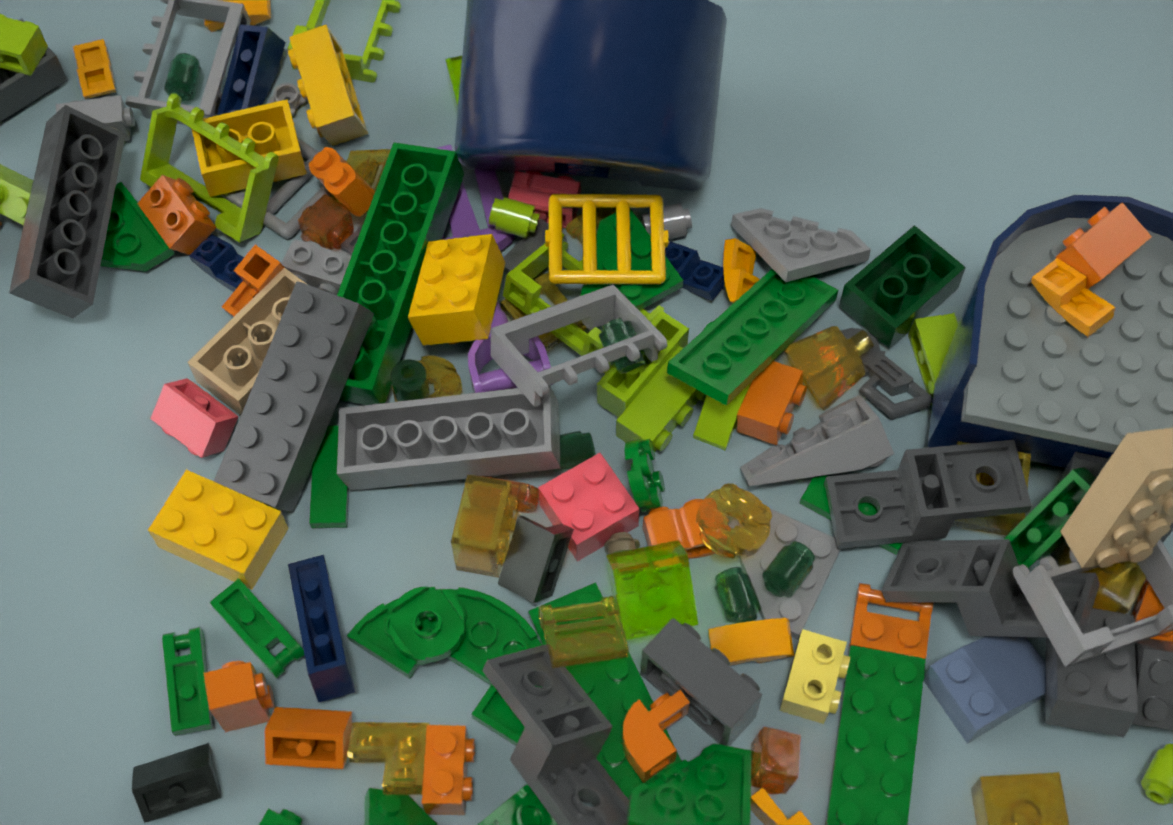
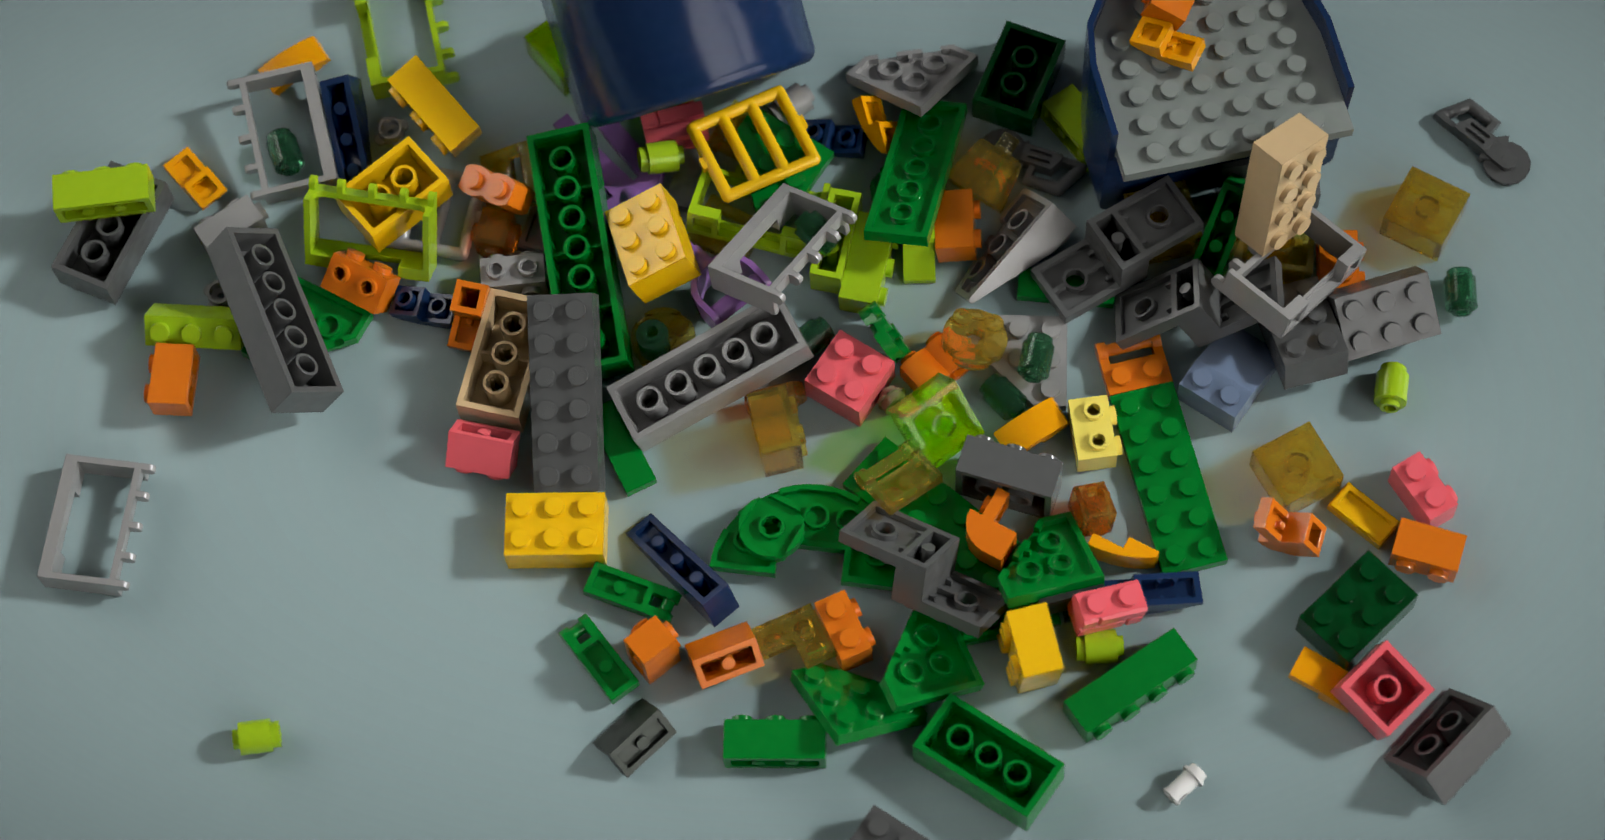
camera: 20 degrees left, 5 degrees up
(534, 559) = (830, 438): pearl dark grey panel -> none

